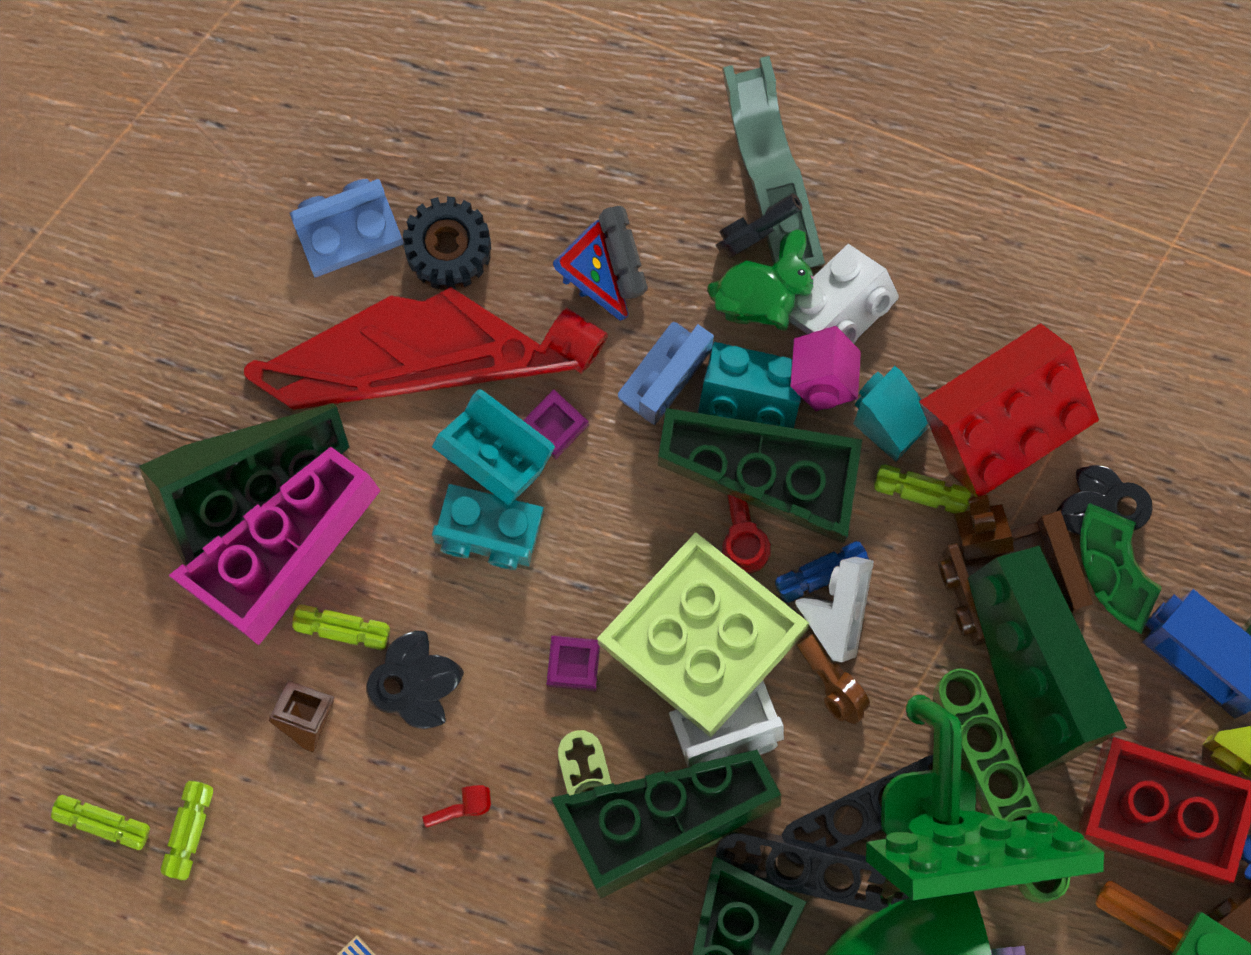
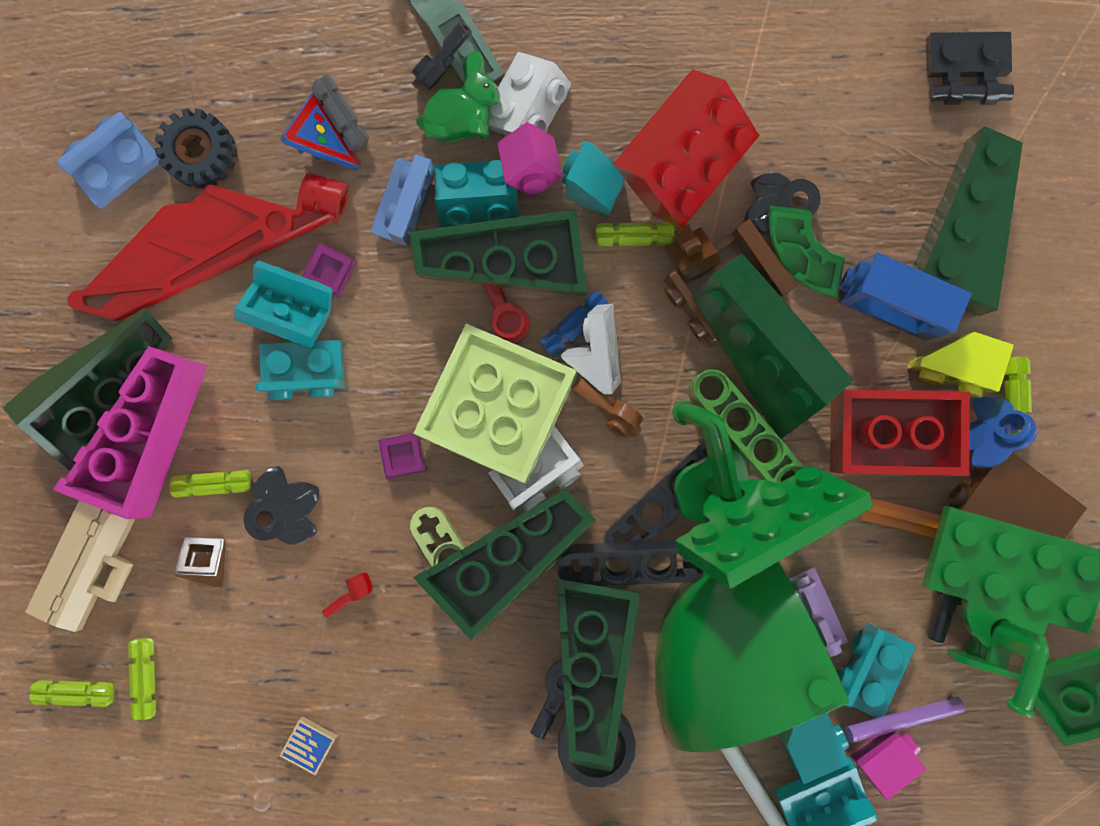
camera: 20 degrees left, 10 degrees up
(161, 672) = (77, 566): none -> tan piece

